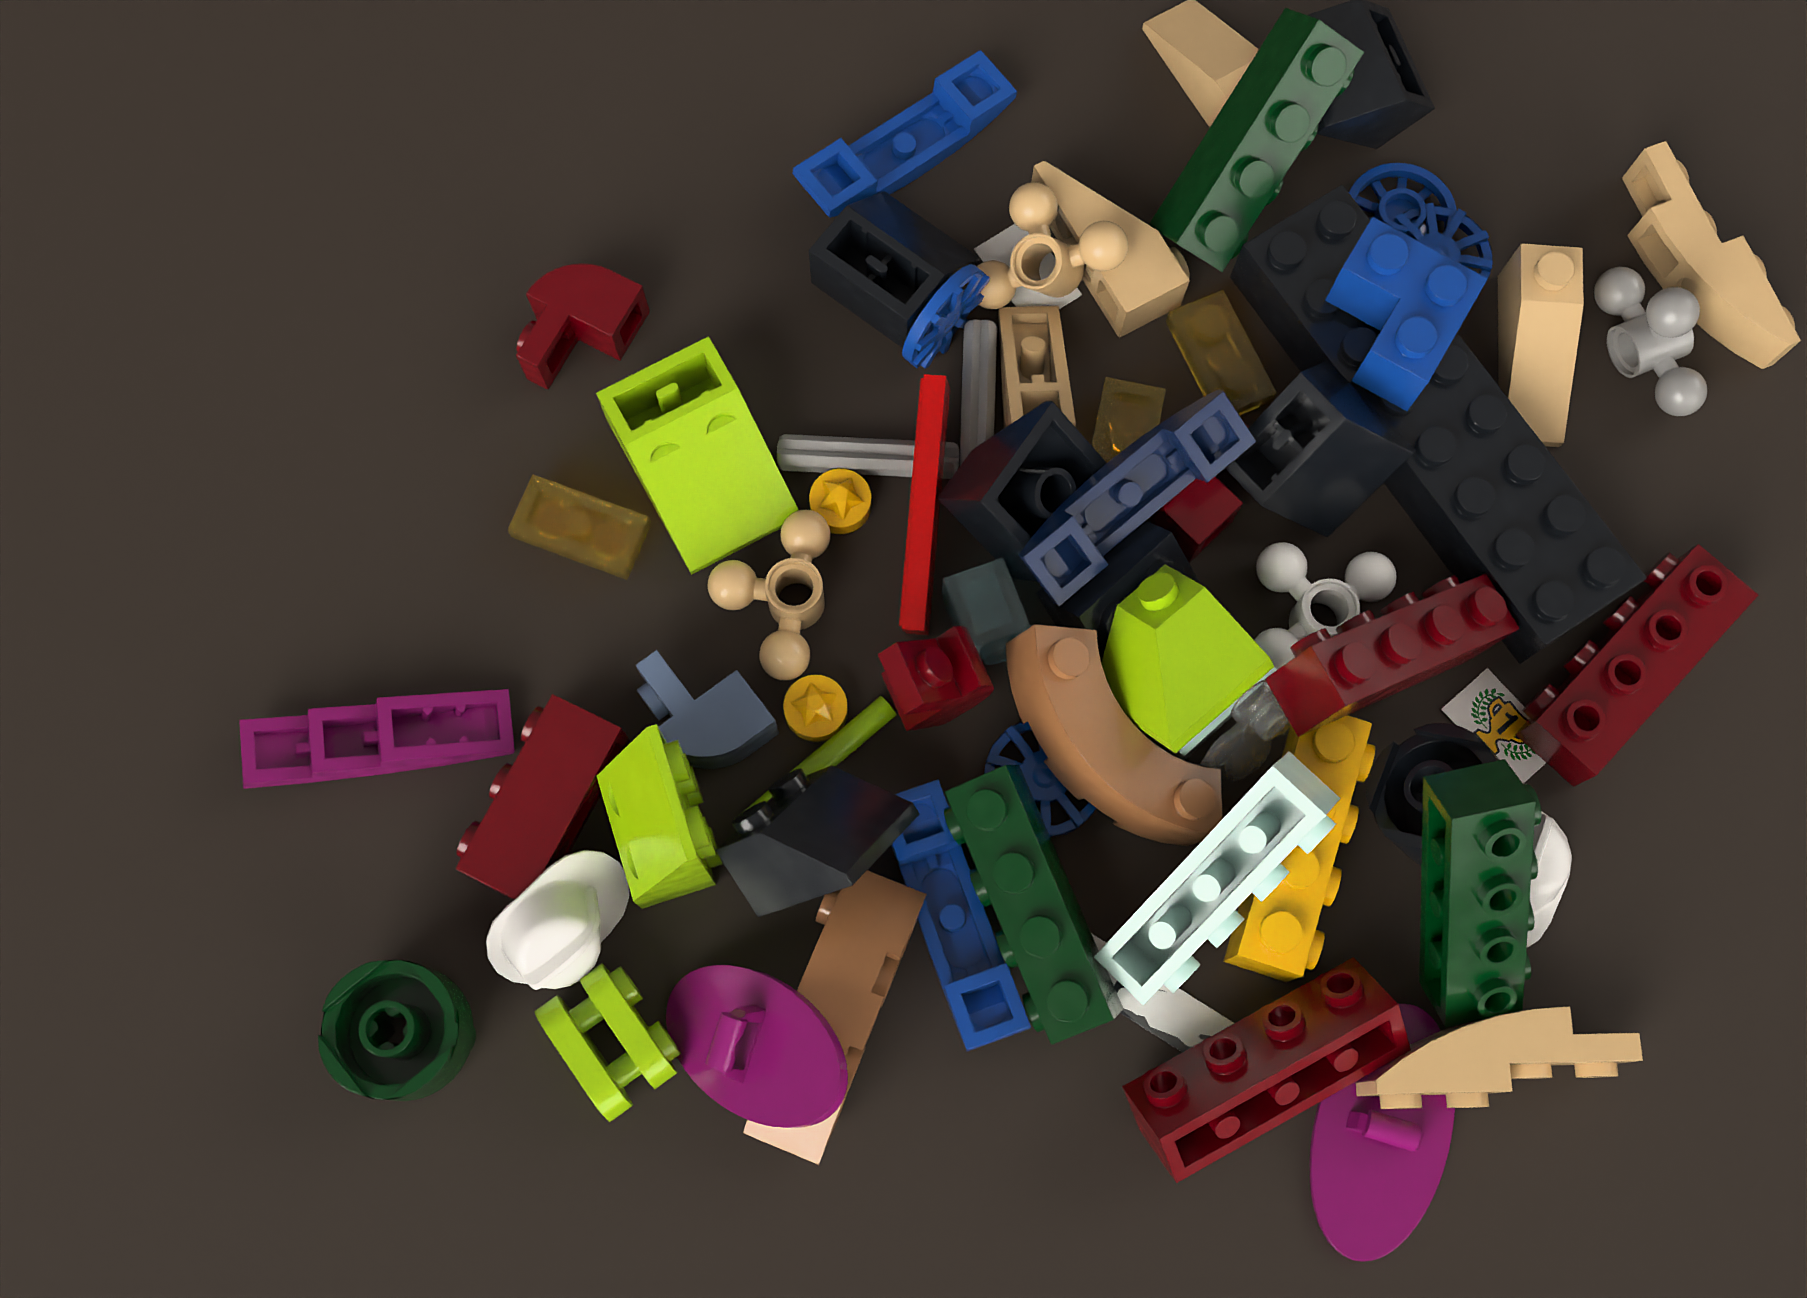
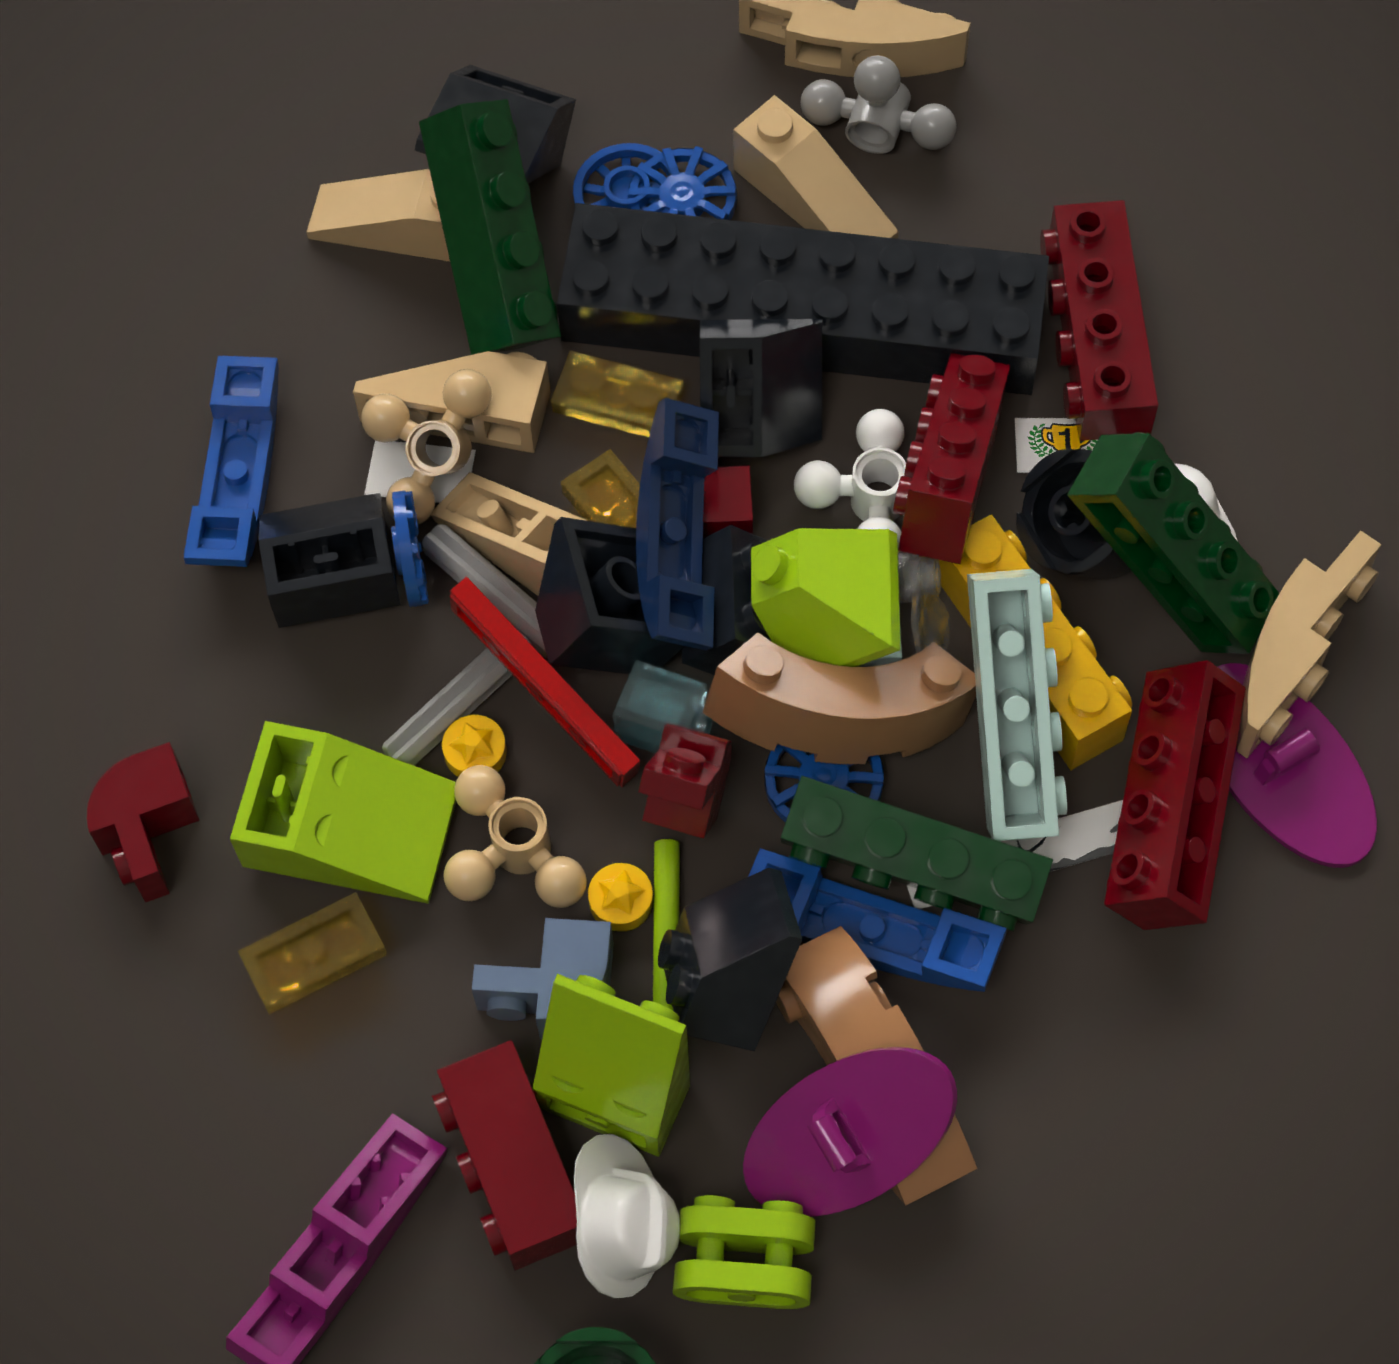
camera: 45 degrees left, 10 degrees down
(1414, 302) = (715, 226): blue brick -> none

